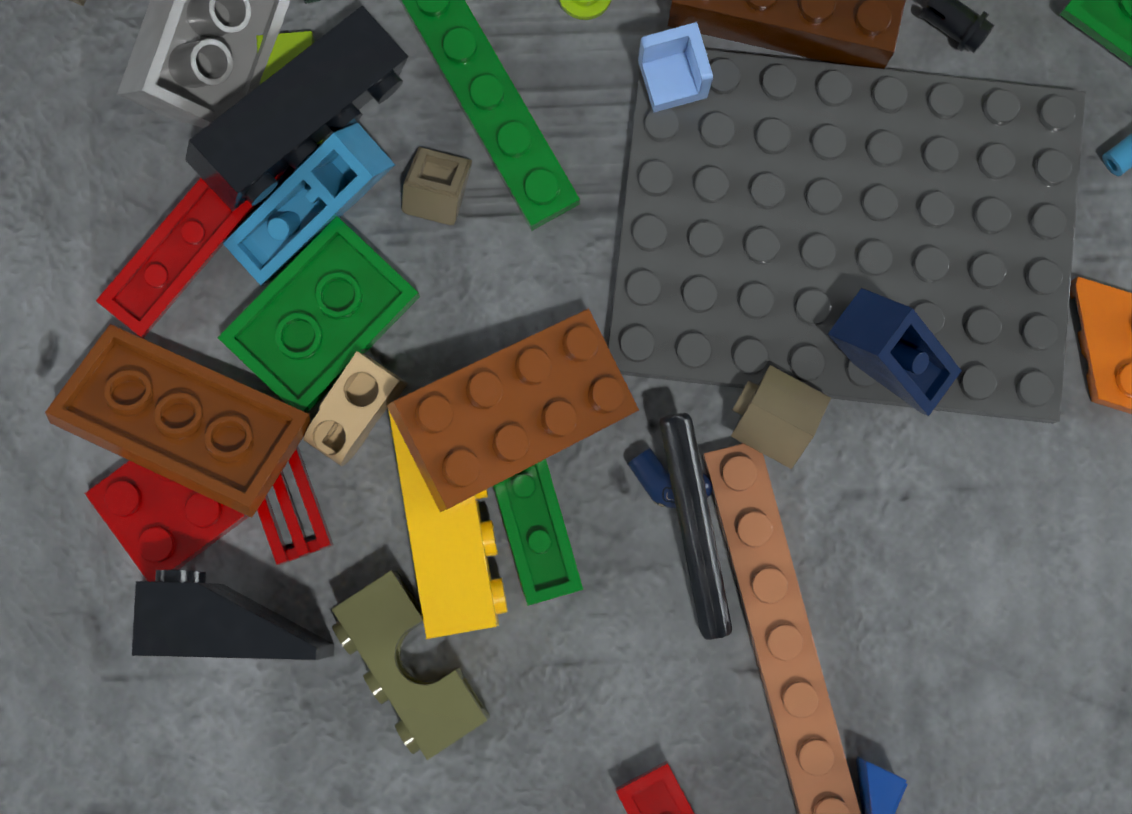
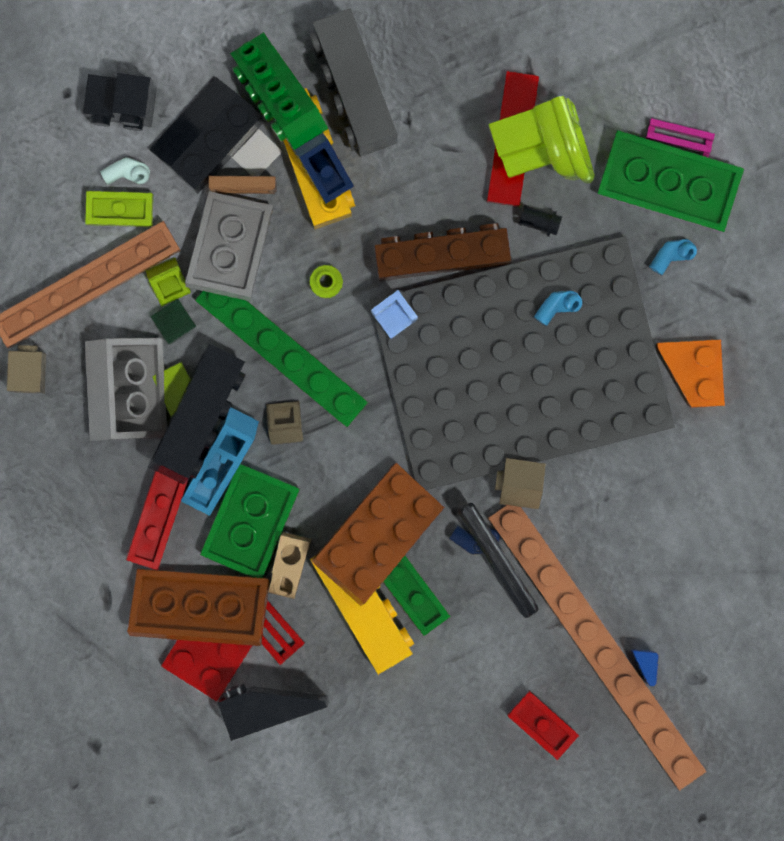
camera: 20 degrees left, 5 degrees up
(376, 626) = (393, 711): olive arch -> none
(895, 349) = (570, 426): dark blue slope -> none
(944, 150) = (556, 303): none -> dark azure arm

